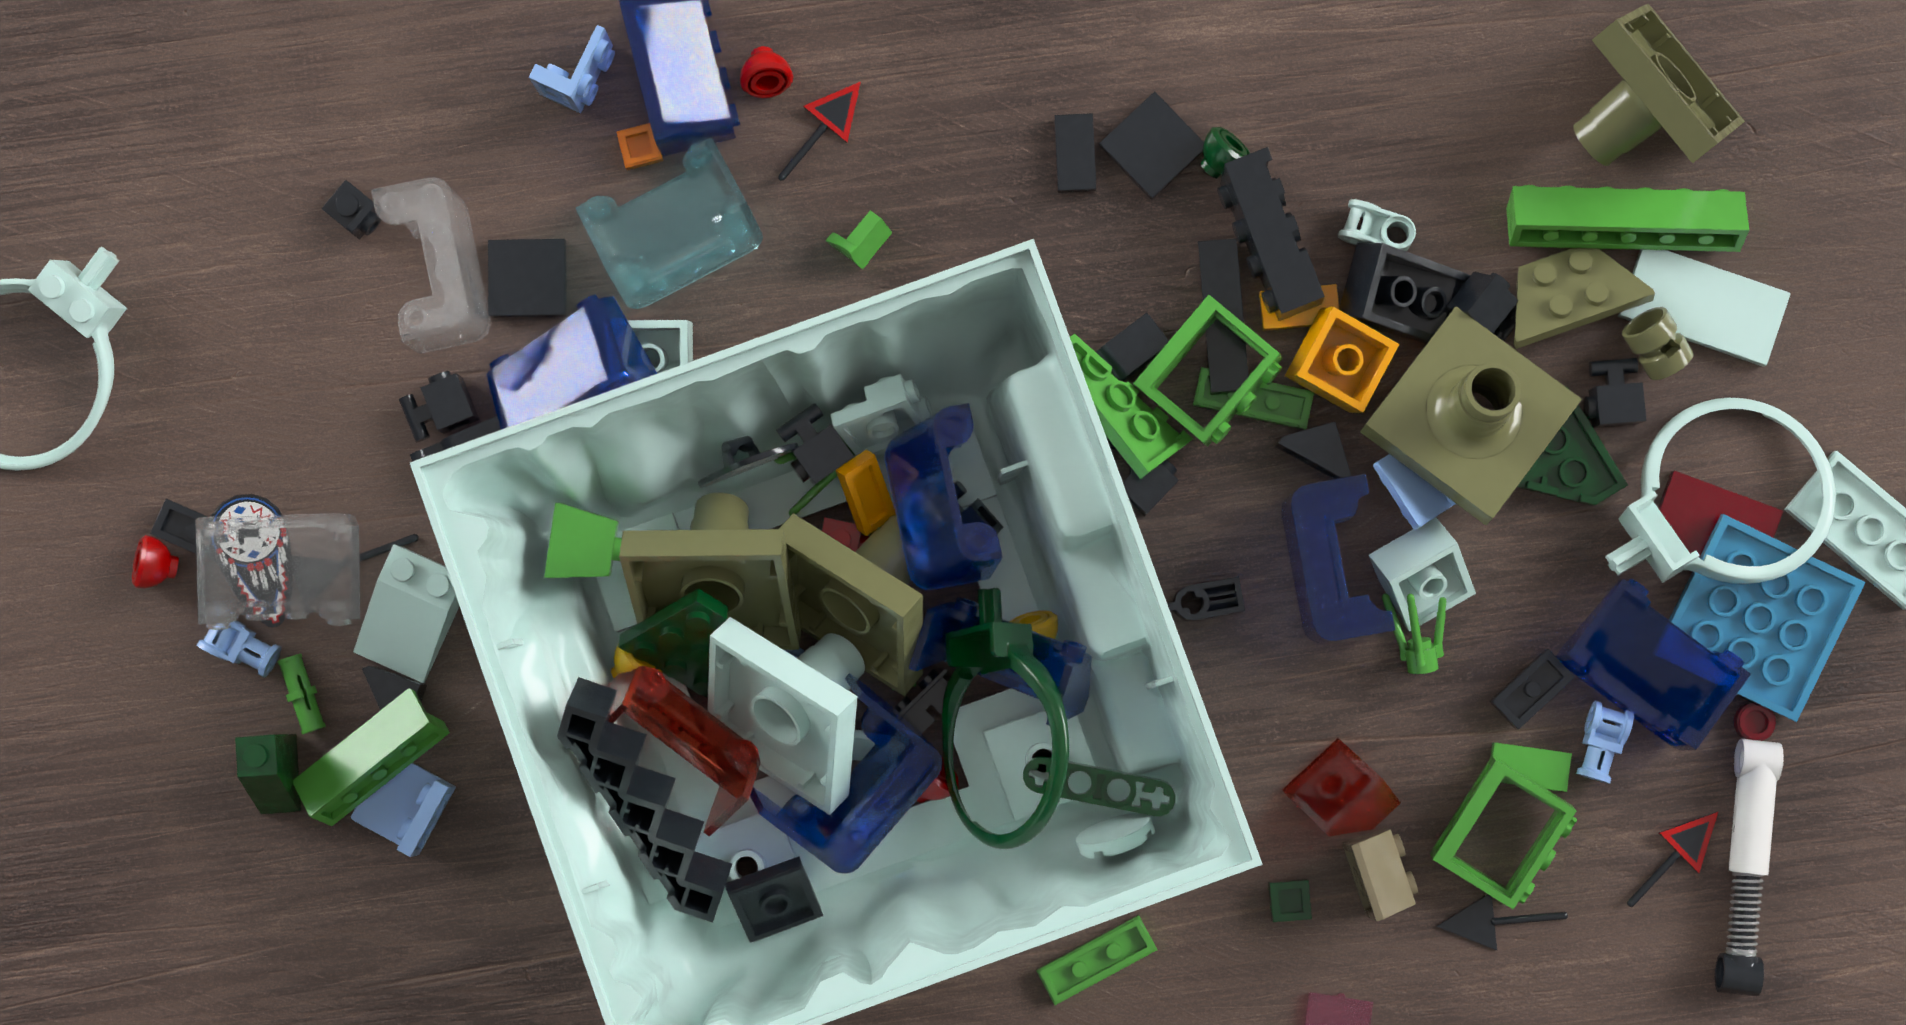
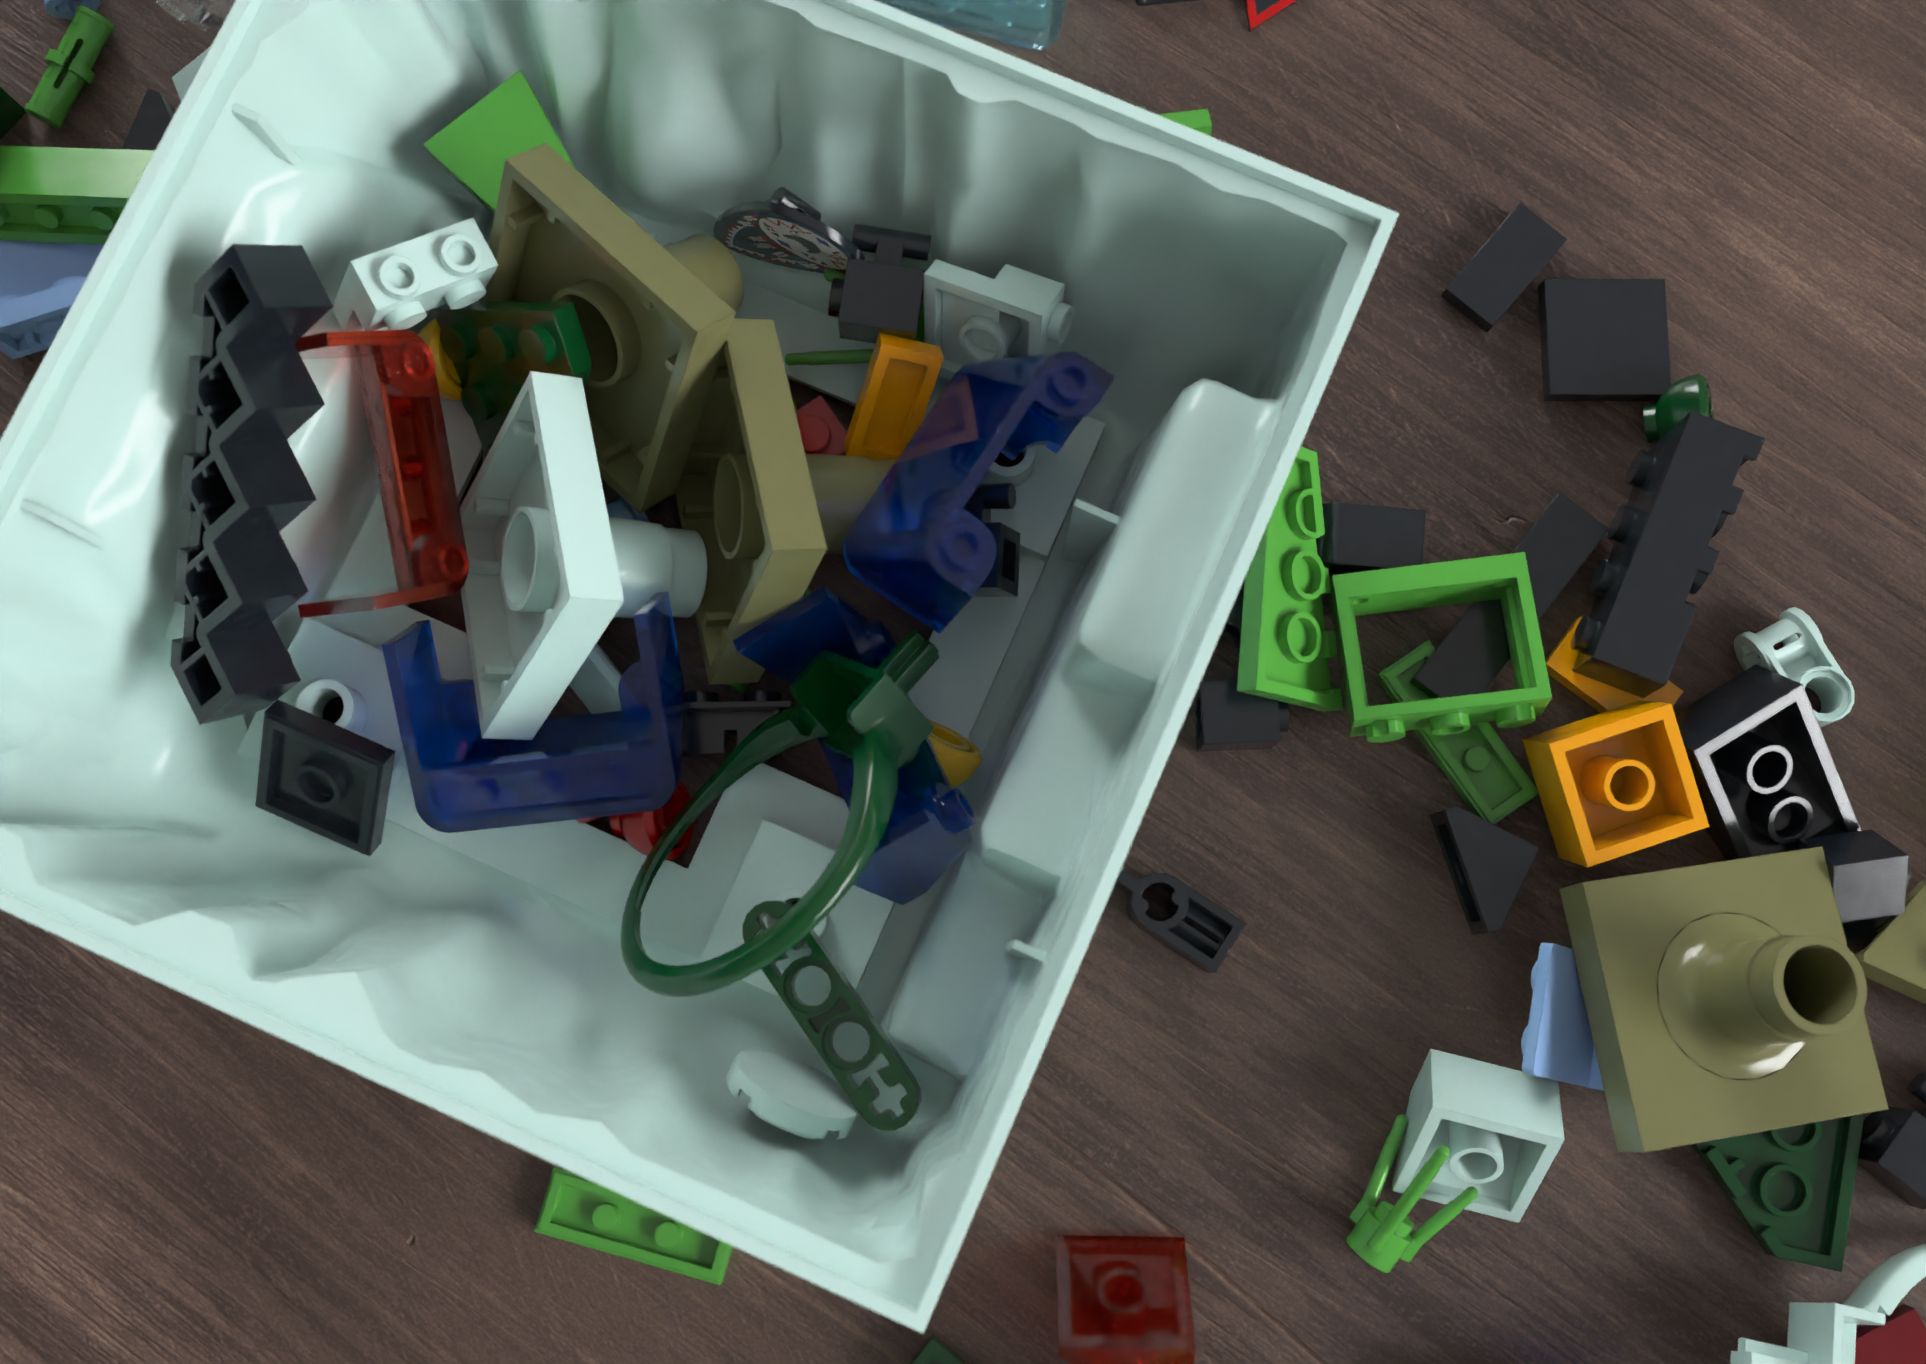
camera: 40 degrees right, 5 degrees down
(614, 641) = (415, 276): none -> light aqua plate
(1317, 564) = (1361, 999): clear blue windscreen -> none

